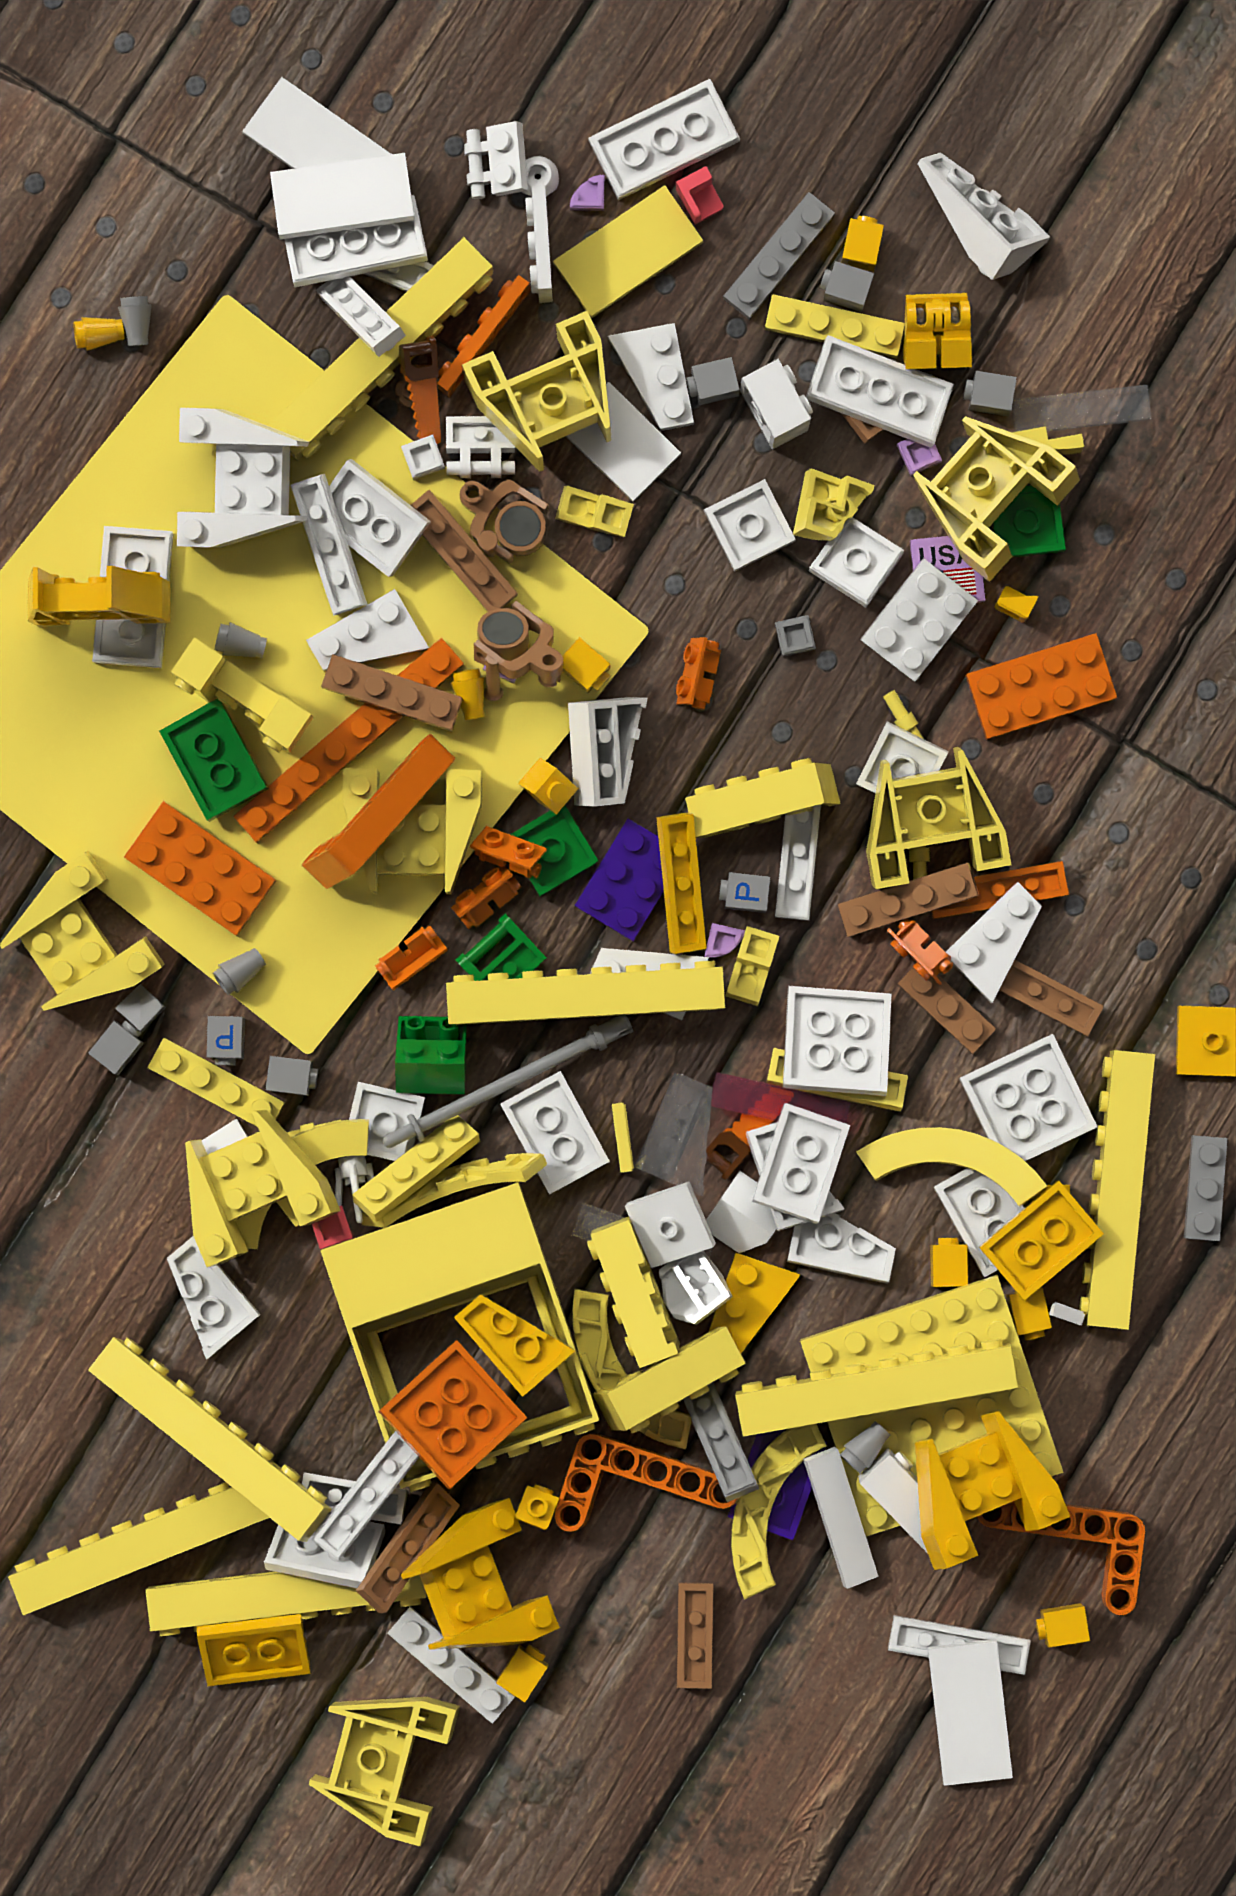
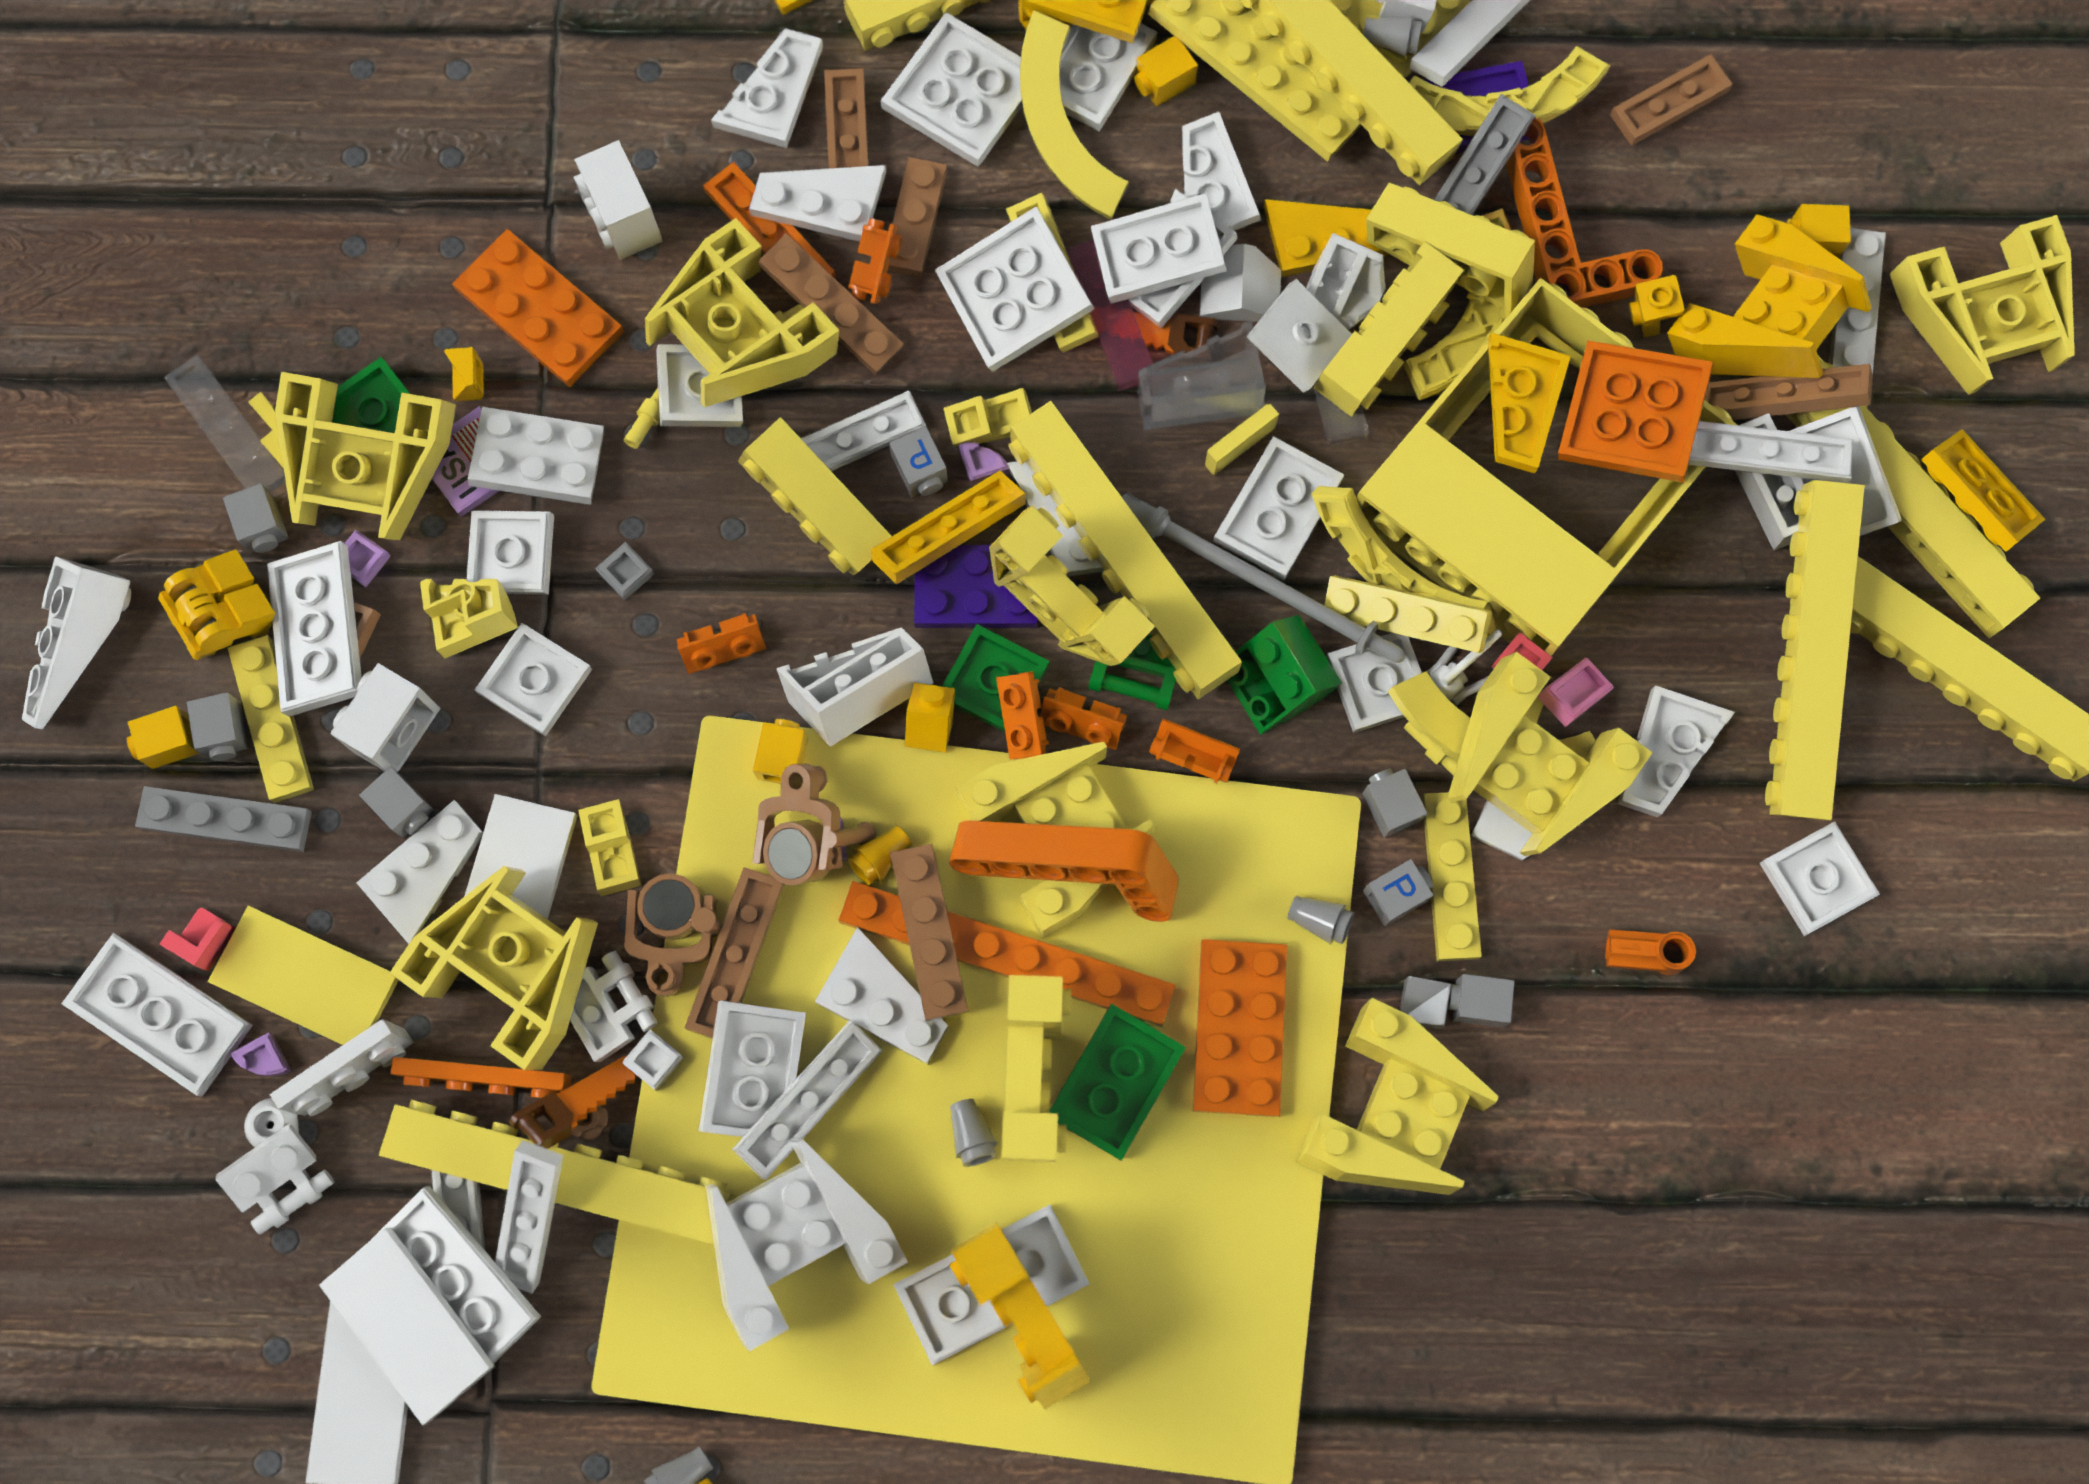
camera: 120 degrees left, 10 degrees down
(55, 1340) = (1819, 878): none -> white plate
(82, 1181) = (1645, 951): none -> orange piece
(288, 1254) = (1575, 691): none -> bright pink tile
(545, 932) = (1068, 611): none -> light yellow wedge
(1082, 787) = (616, 201): none -> white brick
(1110, 958) = (775, 92): none -> white wing

